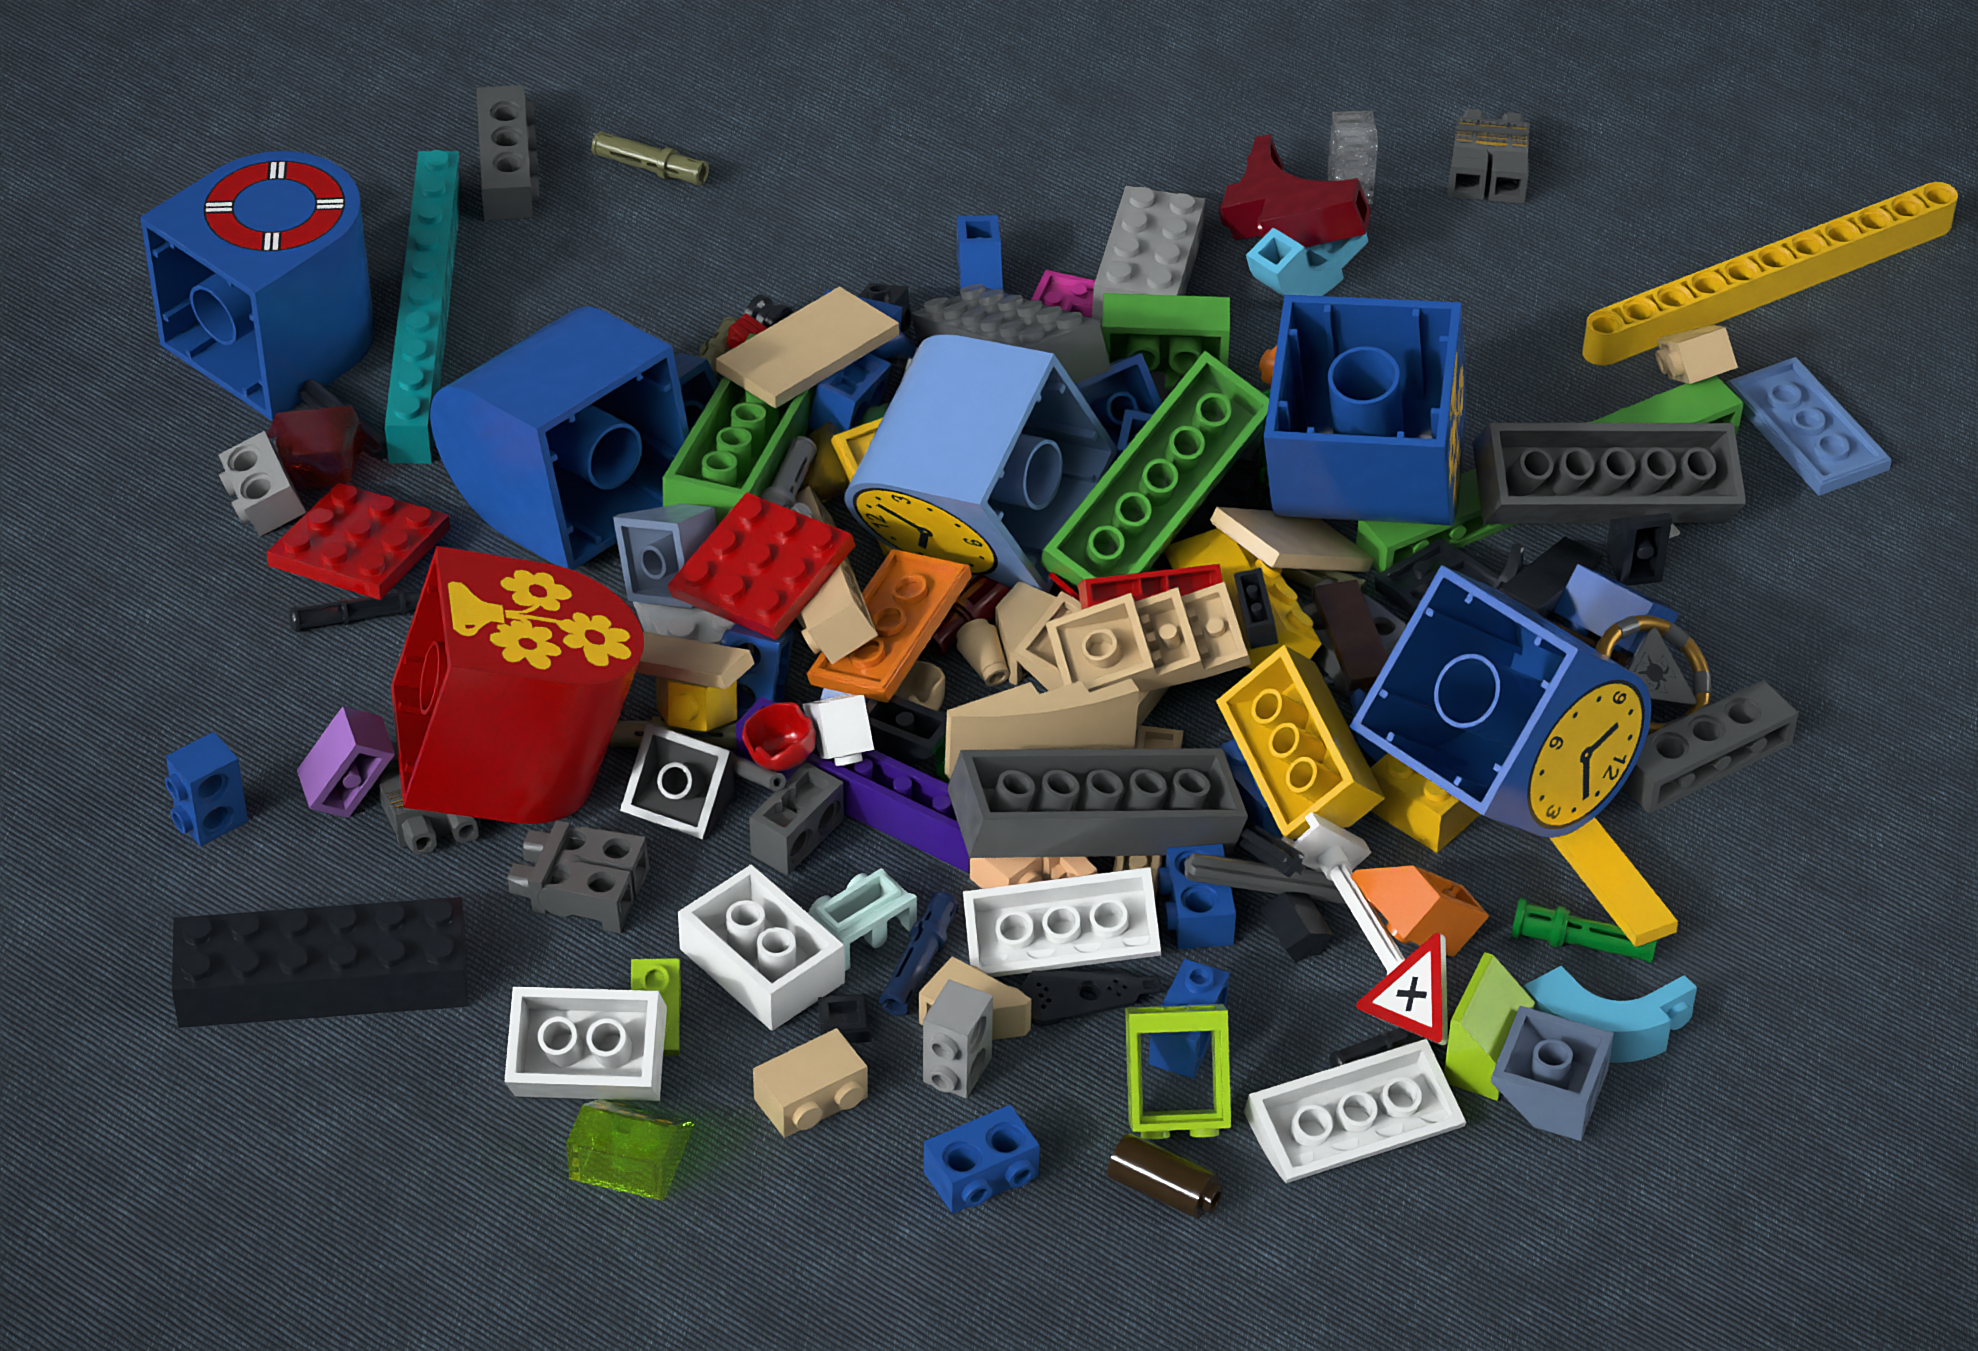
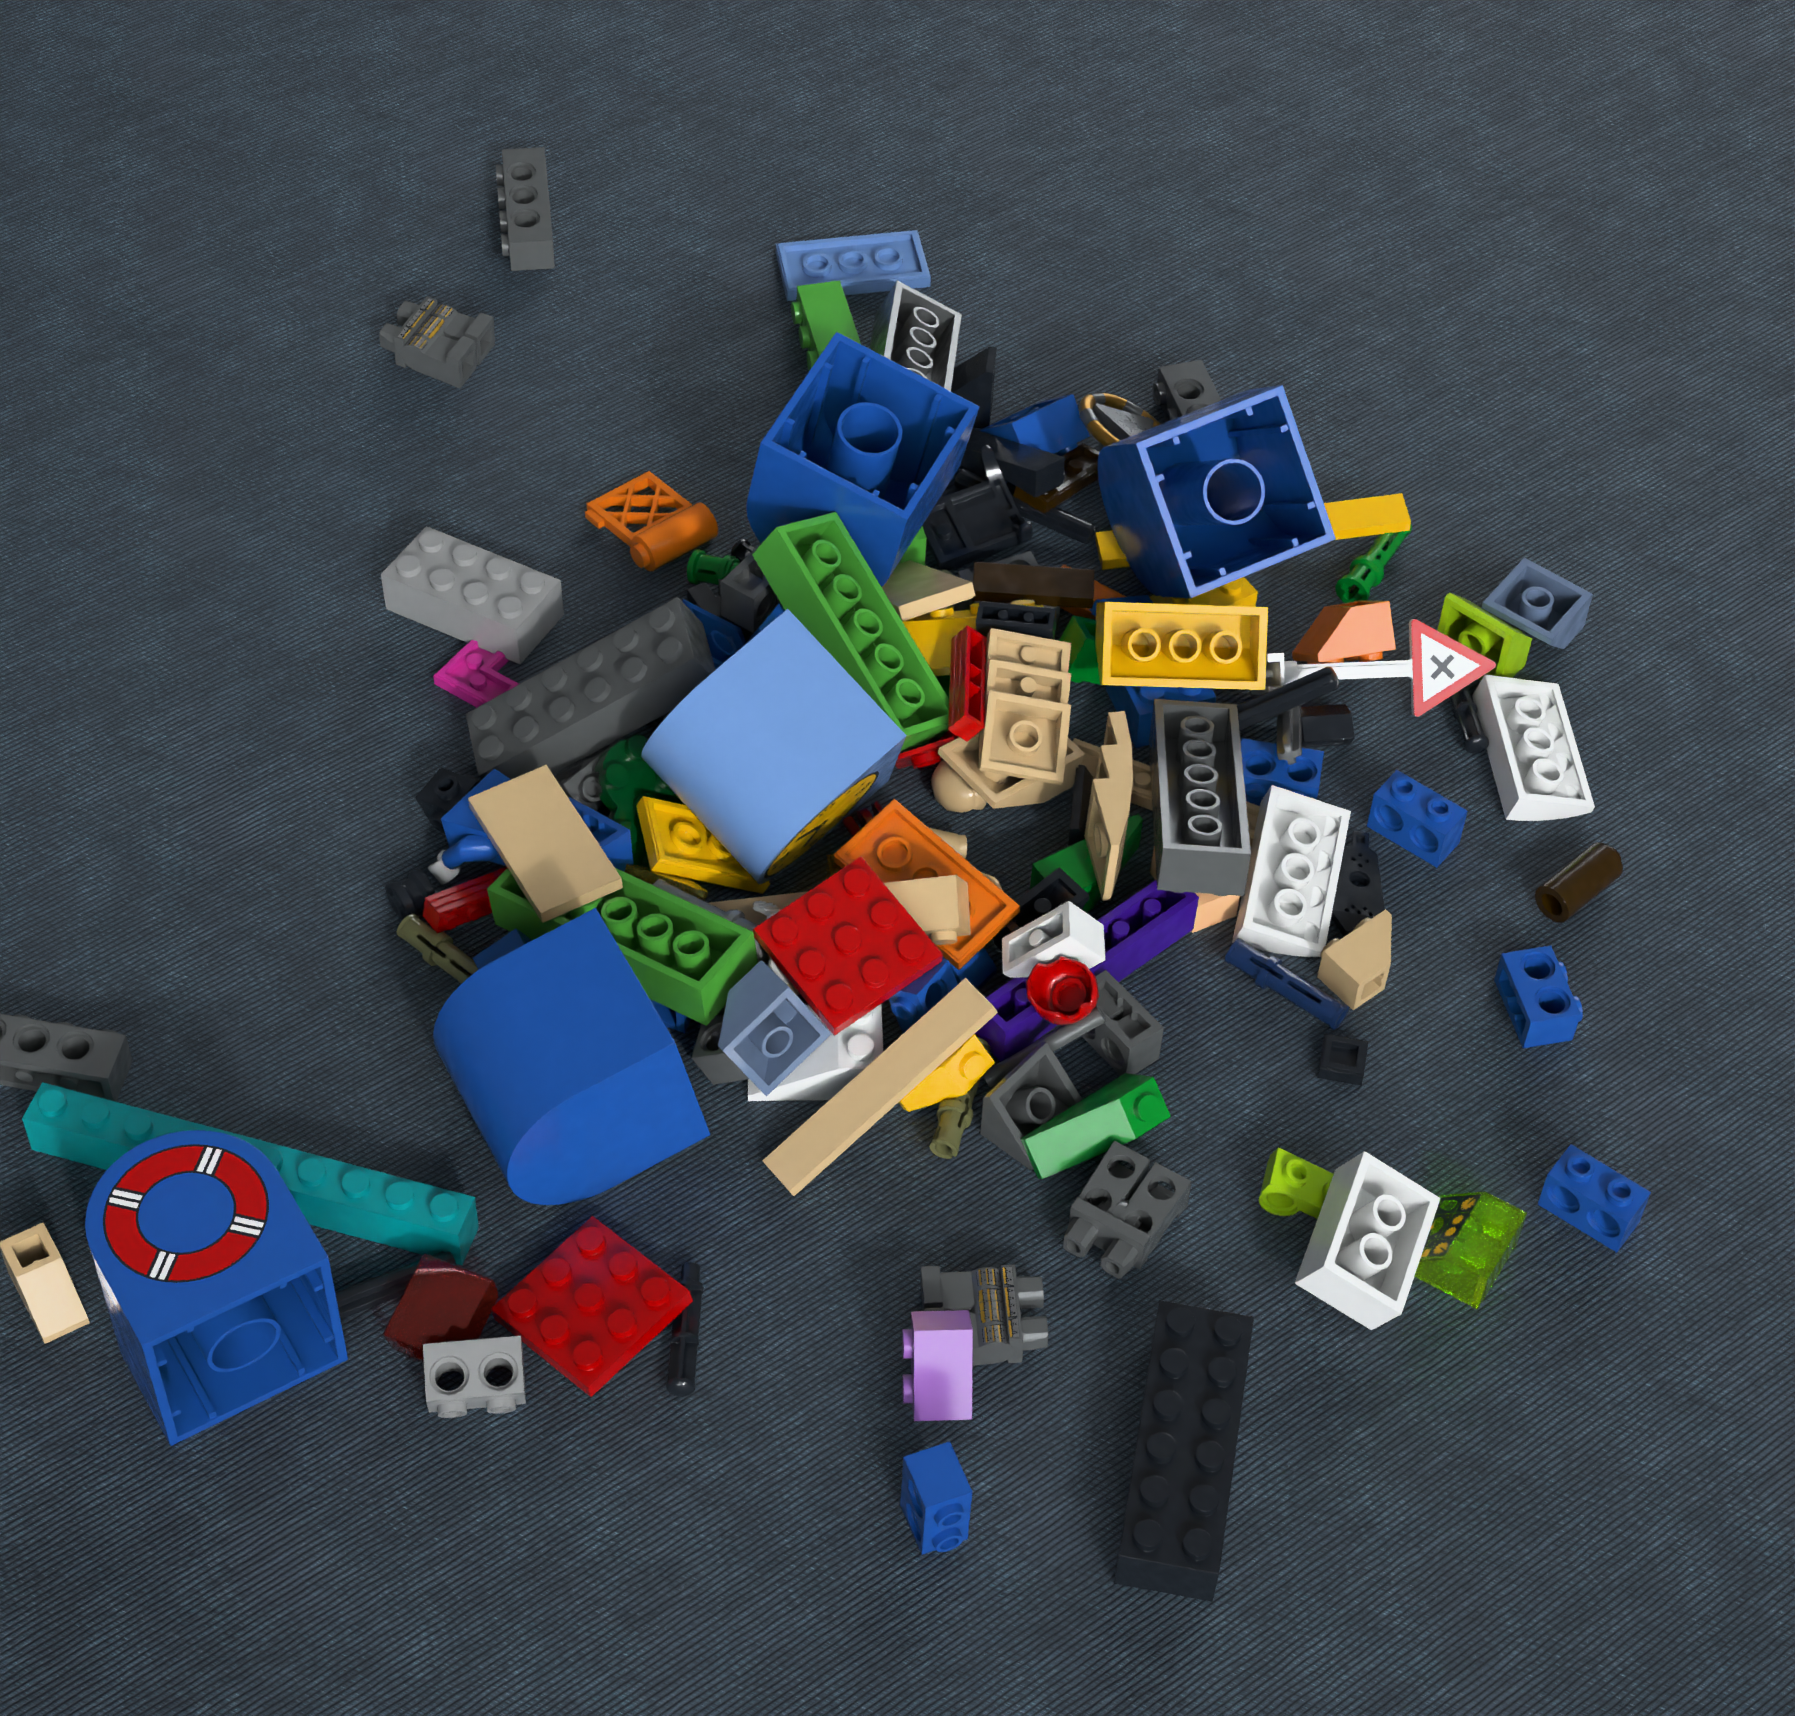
camera: 75 degrees left, 5 degrees up
(510, 687) = (957, 1176): red brick -> none
(664, 162) = (120, 925): olive pin -> none
(676, 831) = (1088, 1128): none -> green slope
(721, 1237) = (1593, 1198): none -> blue brick
(761, 947) = (1267, 1088): white brick -> none
(810, 1083) = (1426, 1094): tan brick -> none
(865, 910) = (1226, 1032): light aqua window -> none
(957, 1038) = (1420, 971): light grey brick -> none
(979, 251) = (414, 712): blue slope -> none
(1015, 618) = (924, 800): tan slope -> none
(1166, 330) = (604, 595): bright green brick -> none
(1179, 1019) = (1486, 798): lime window -> none
(1297, 207) = (476, 471): dark red arch -> none
(1300, 269) = (531, 495): medium azure arch -> none
(1353, 149) = (412, 418): clear brick -> none
(1638, 1025) = (1486, 565): medium azure arch -> none
(1695, 354) = (776, 286): tan slope -> none
(1723, 166) = (527, 209): none -> dark grey brick
(1769, 273) = (675, 228): yellow beam -> none

